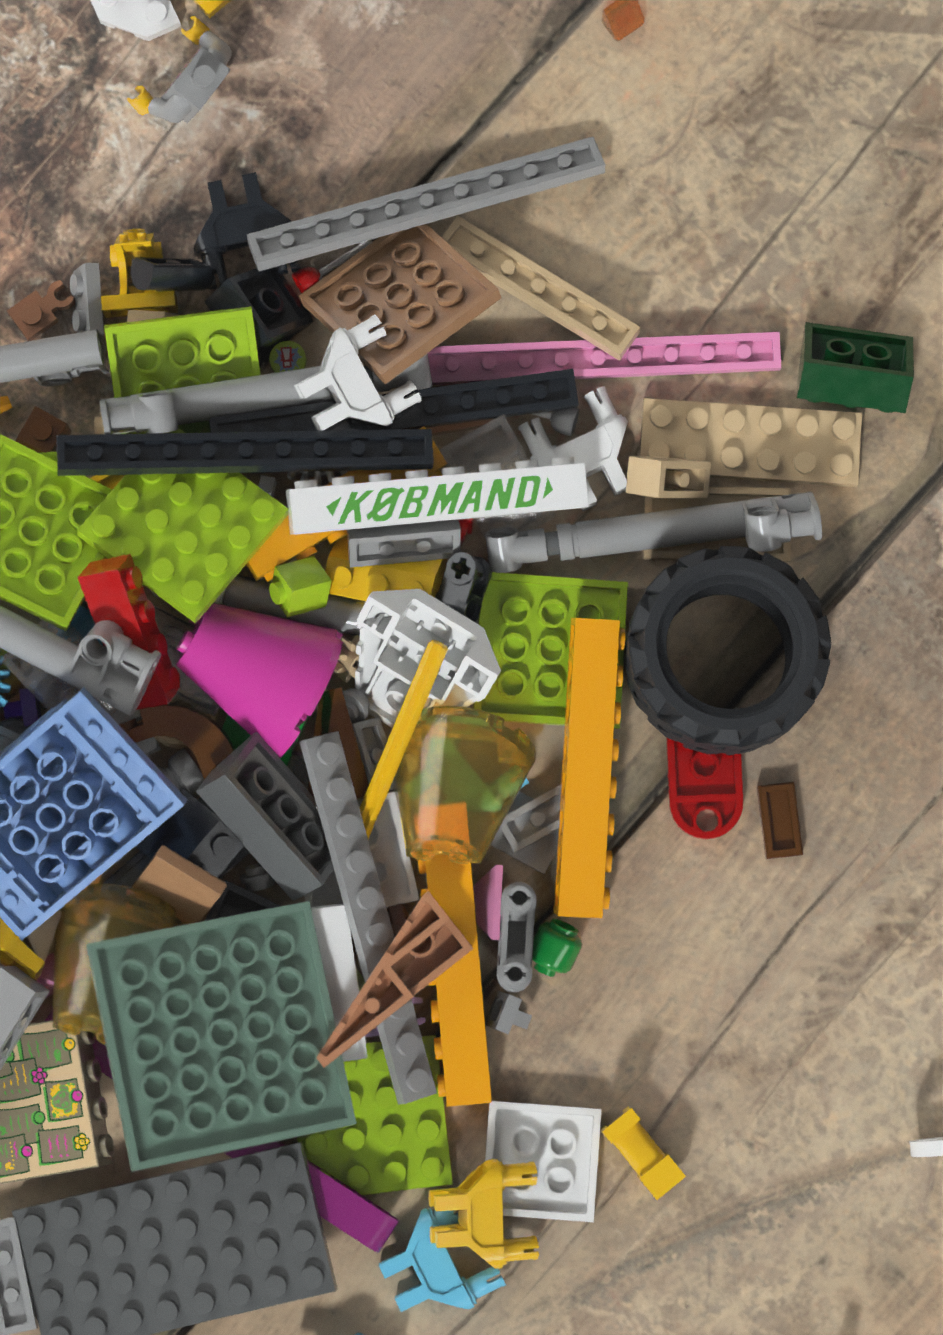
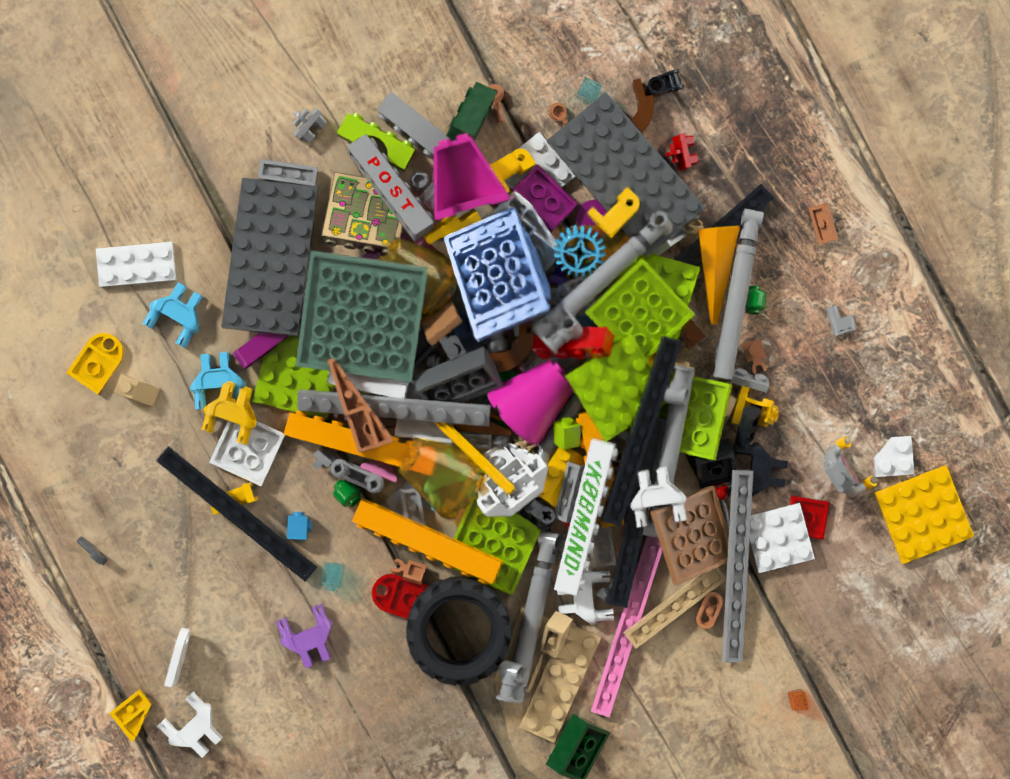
camera: 115 degrees right, 5 degrees up
(287, 357) = (685, 468): tile -> none
(296, 116) = (815, 515): none -> red tile
(350, 148) = (780, 538): none -> white plate
(523, 226) = (710, 610): none -> nougat plate
(647, 1013) = (298, 526): none -> dark azure brick
(653, 775) = (411, 572): none -> nougat plate
(666, 1136) = (236, 513): none -> black plate
(714, 918) = (332, 575): none -> clear light blue brick
(779, 820) = (368, 625): reddish brown tile -> none
(844, 919) = (308, 639): none -> medium lavender connector

